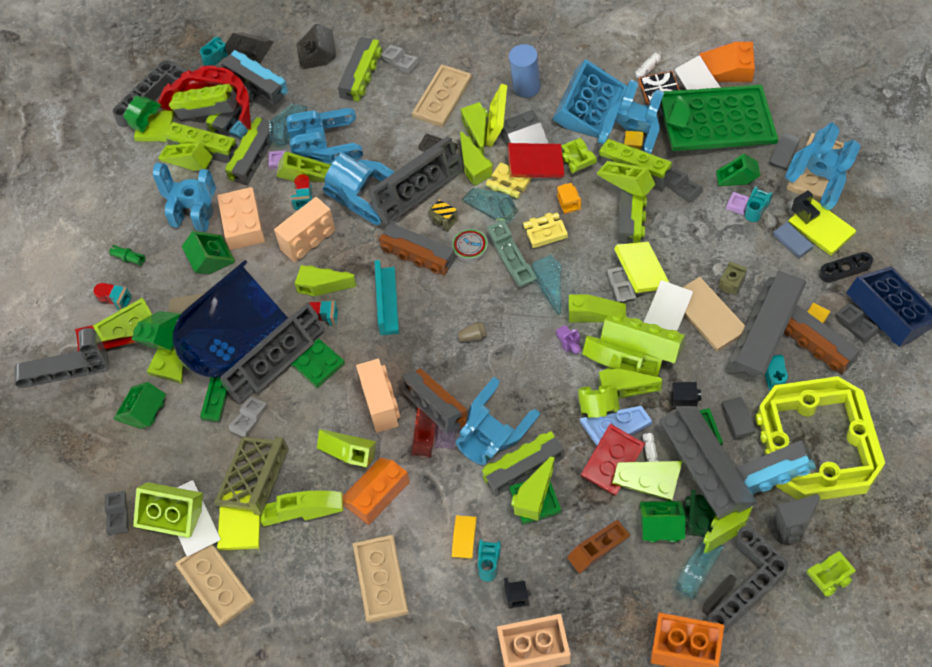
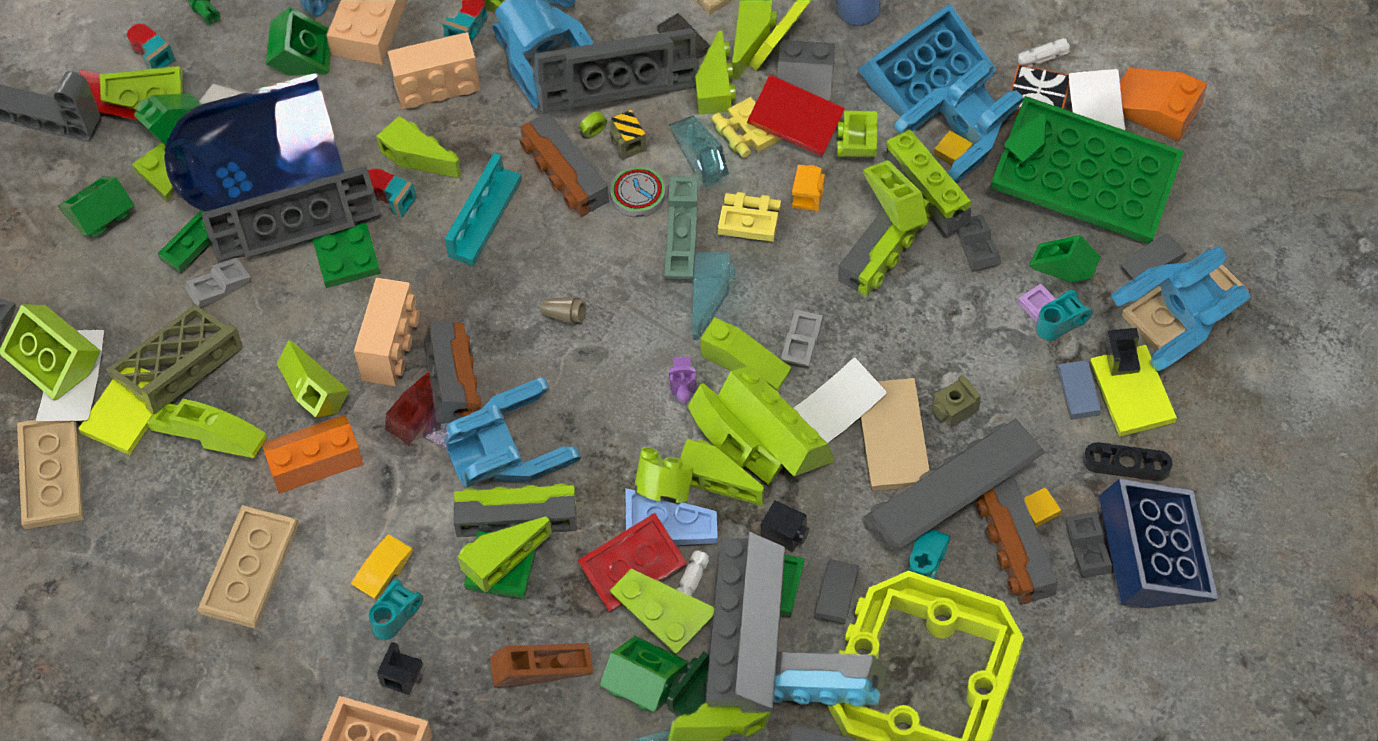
camera: 25 degrees right, 0 degrees up
(419, 218) = (593, 124): none -> lime tile
(641, 266) = (842, 325): neon yellow tile -> none

